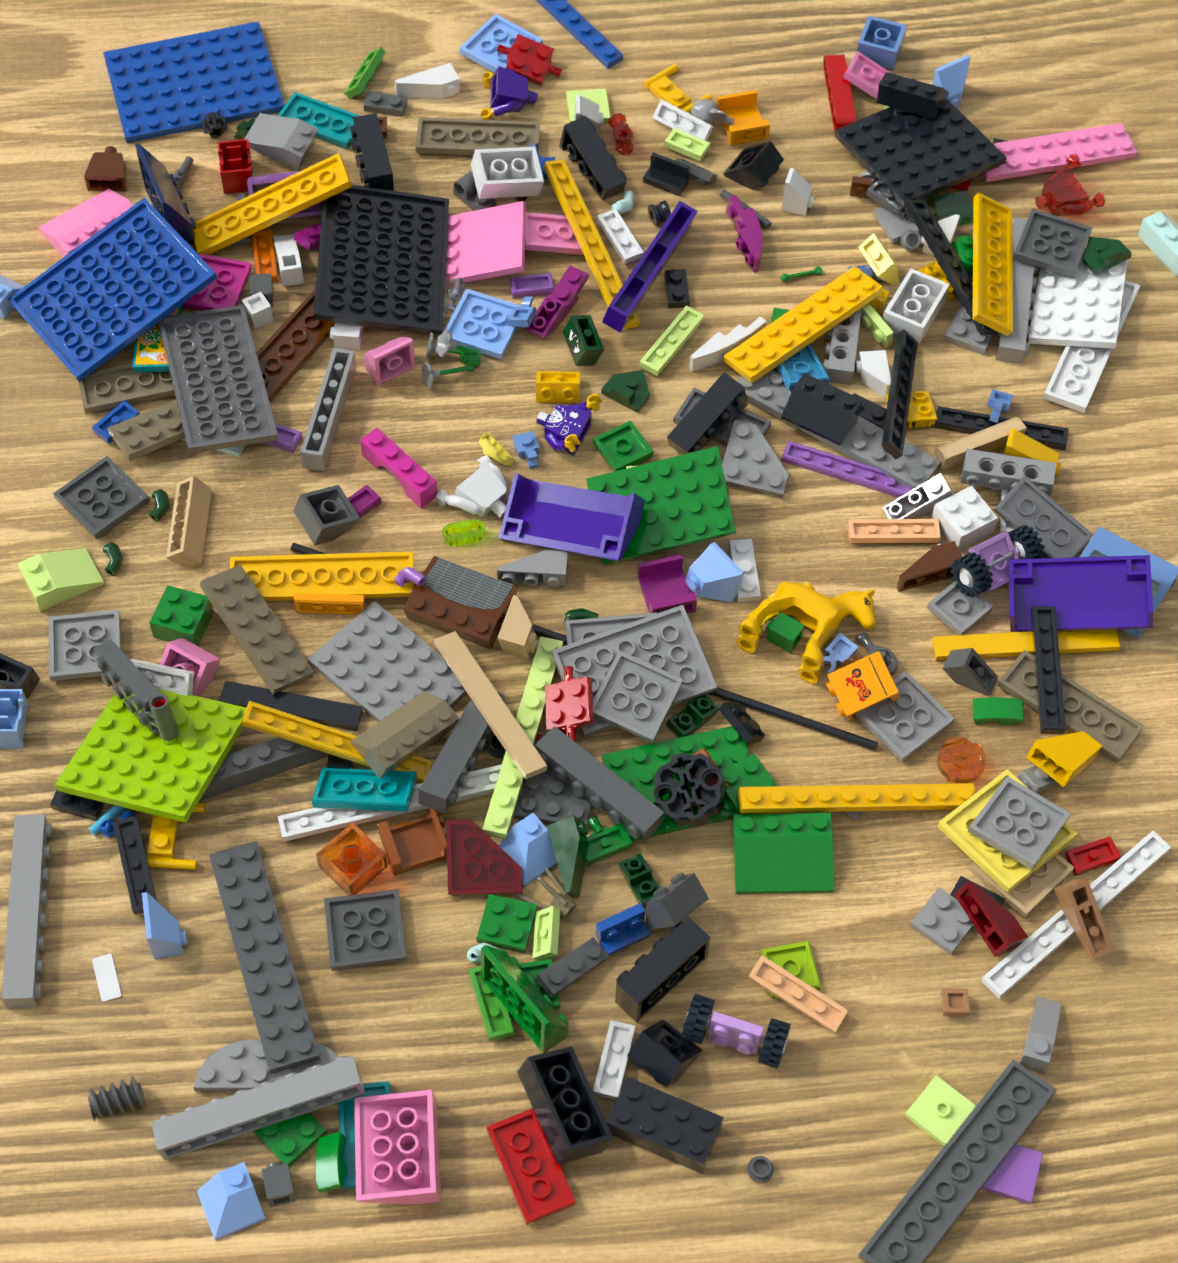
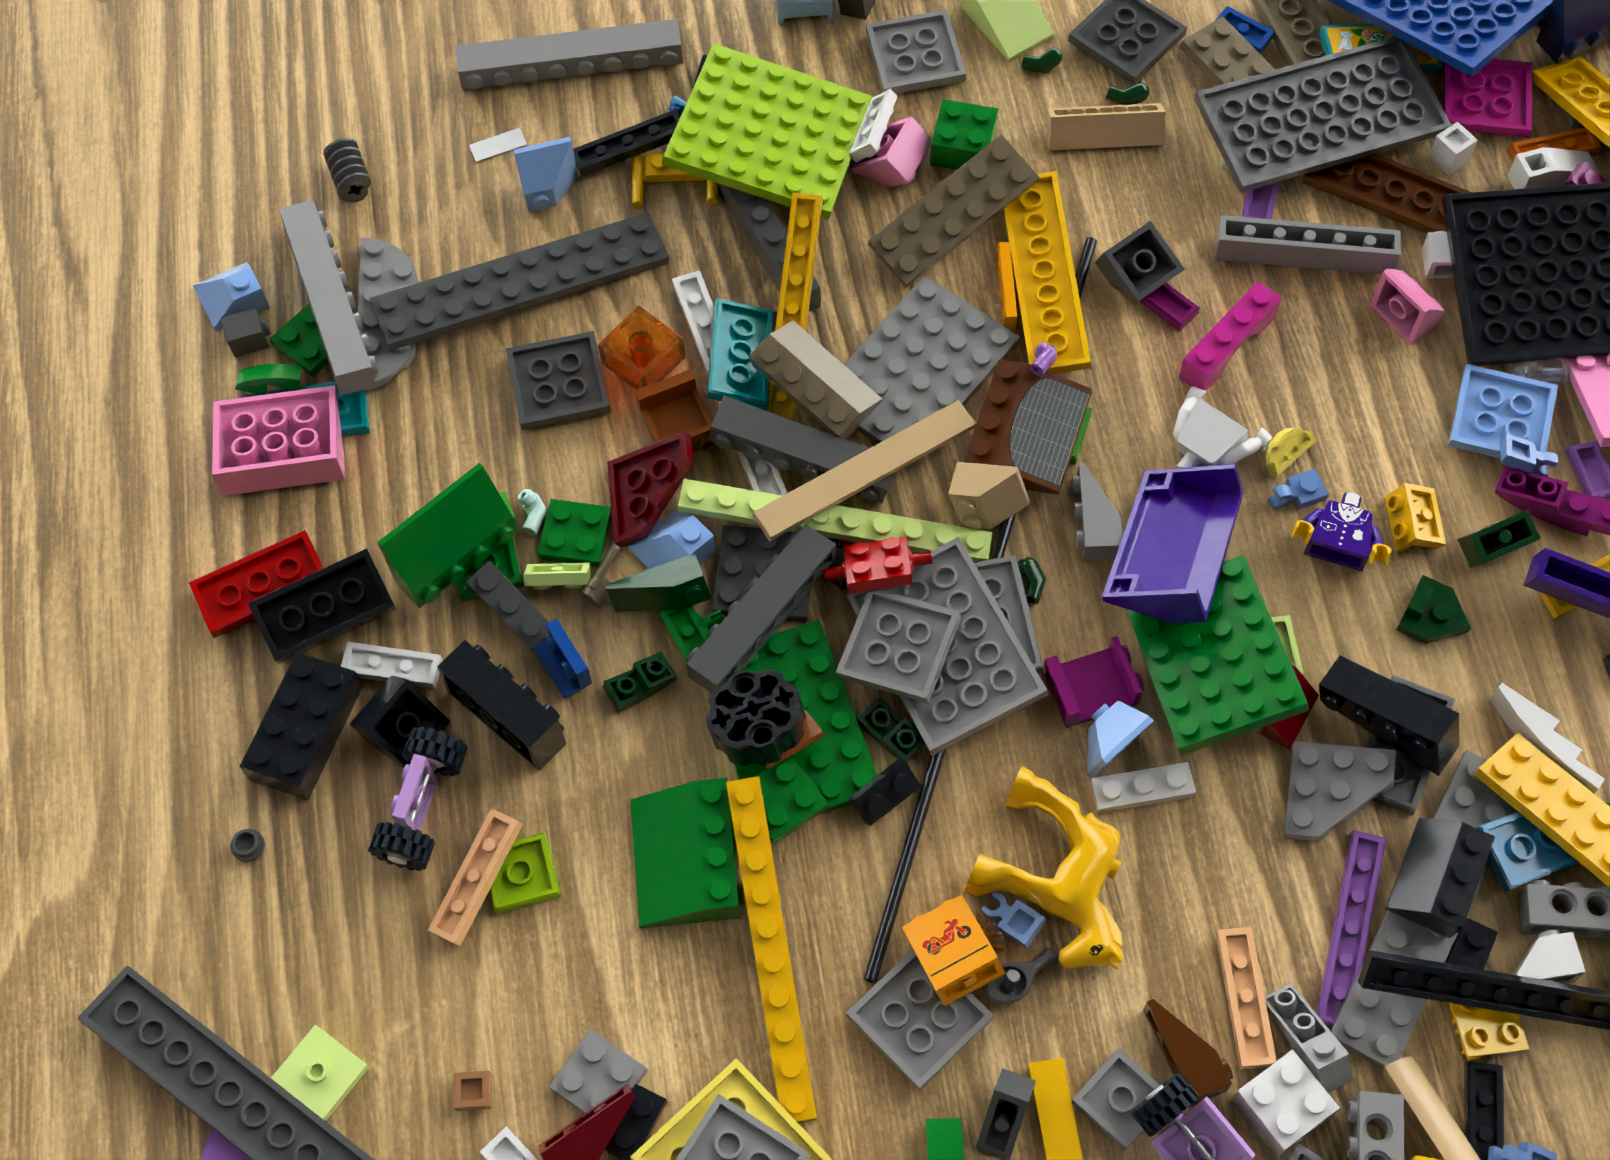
camera: 90 degrees right, 5 degrees up
(136, 691) = (833, 89): dark grey hinge -> none
(264, 284) = (1492, 149): dark grey brick -> none
(306, 707) = (858, 271): black tile -> none
(463, 532) = (1139, 430): clear neon green beam -> none
(469, 357) = (1438, 356): plant -> none
(623, 447) = (1324, 610): green plate -> none
(671, 340) = (1536, 663): yellowish green plate -> none
(675, 901) = (587, 708): dark grey slope -> none
(785, 632) = (1039, 843): green brick -> none
(958, 772) = (872, 1110): clear orange plate -> none

